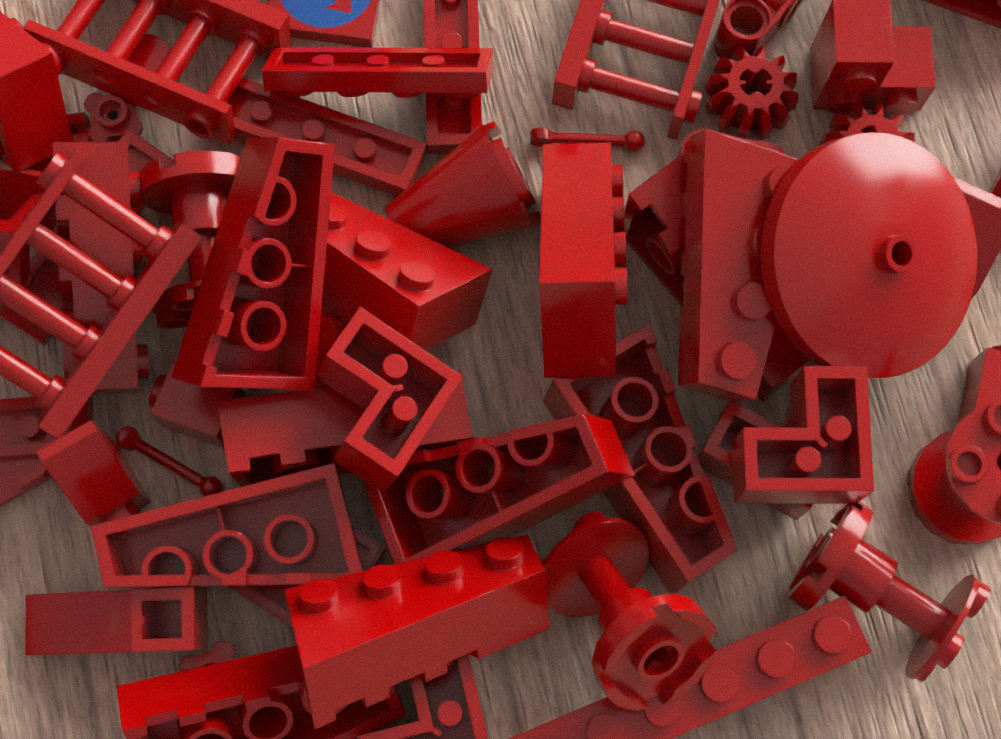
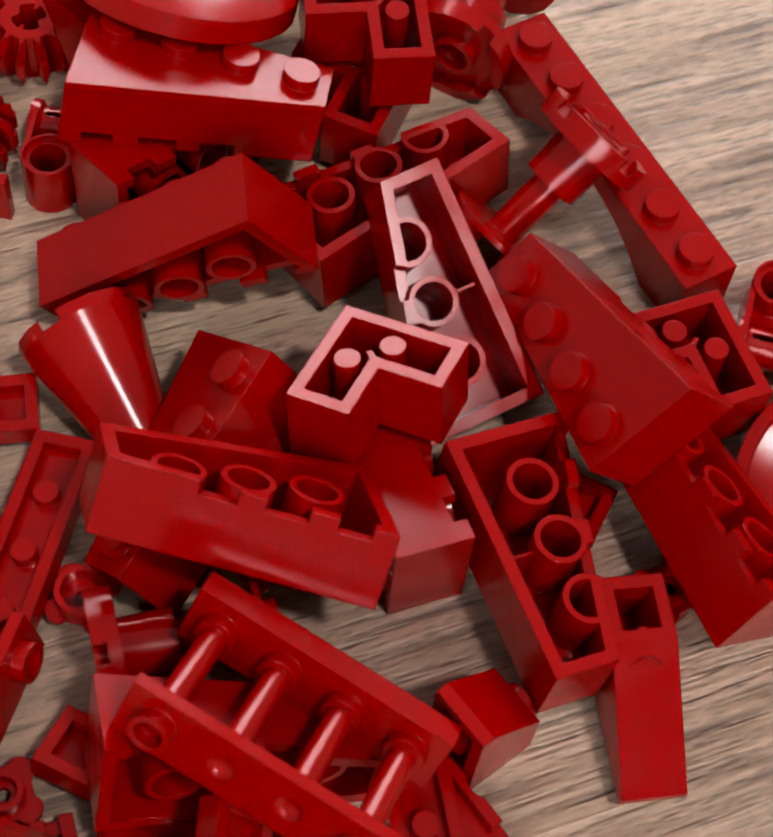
camera: 100 degrees left, 15 degrees down
(130, 439) = (461, 627): red hinge -> none
(190, 408) = (380, 635): red brick -> none
(632, 140) = (19, 245): red hinge -> none

